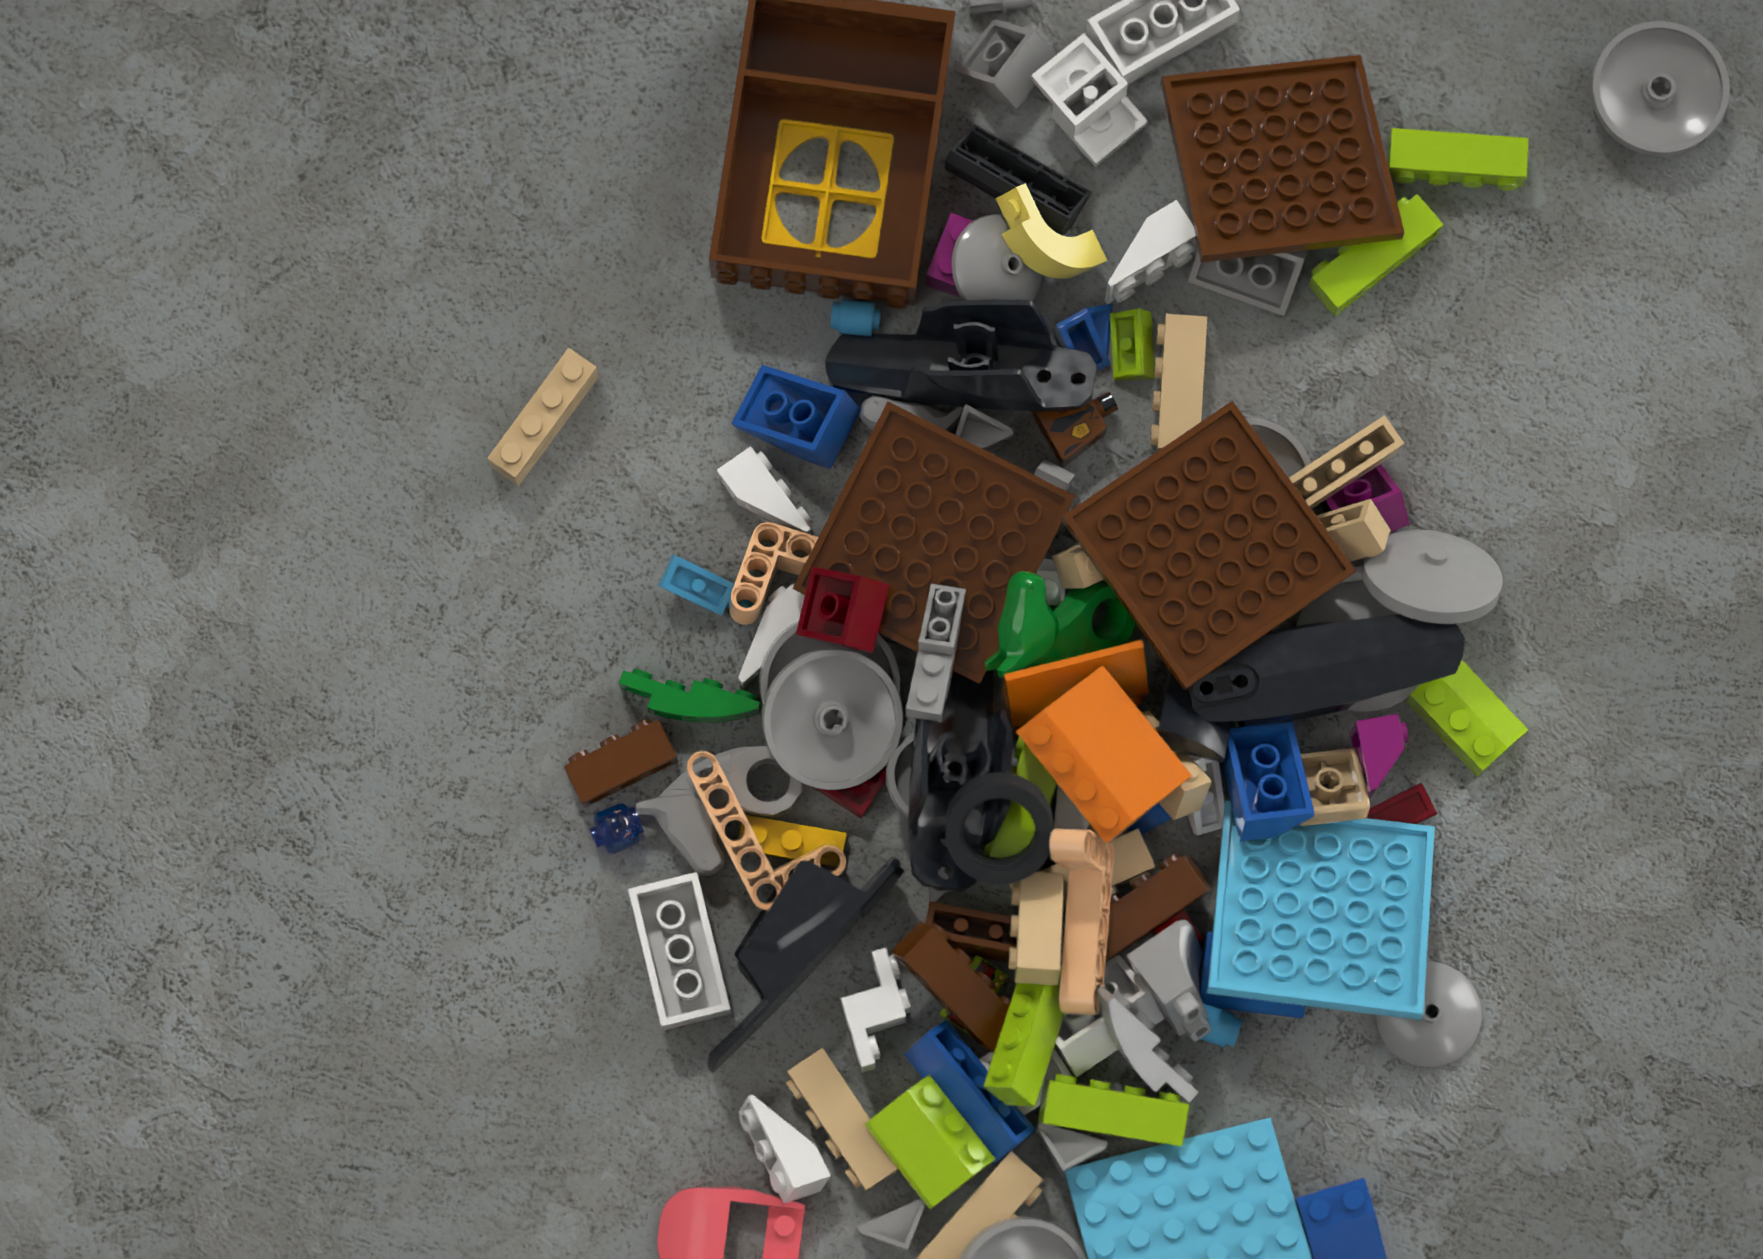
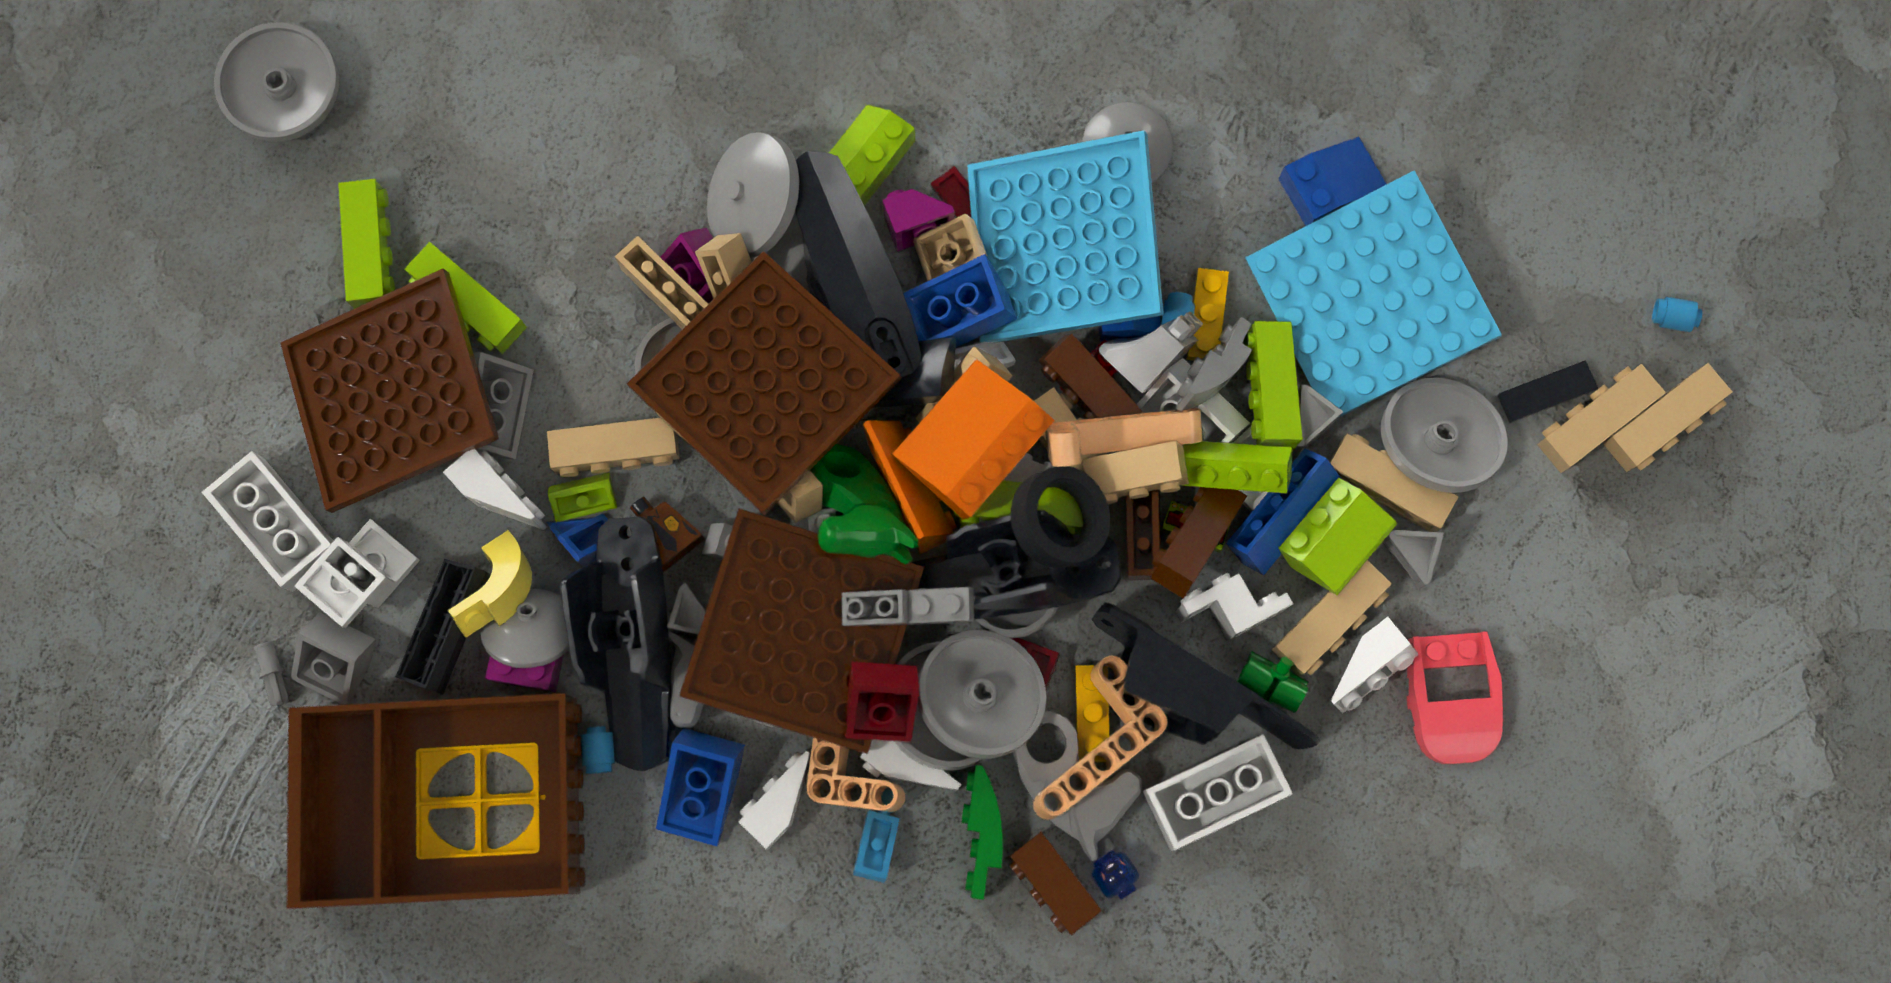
camera: 100 degrees left, 0 degrees up
(786, 1039) = (1274, 681): none -> green pin
(1214, 1062) = (1209, 309): none -> yellow plate

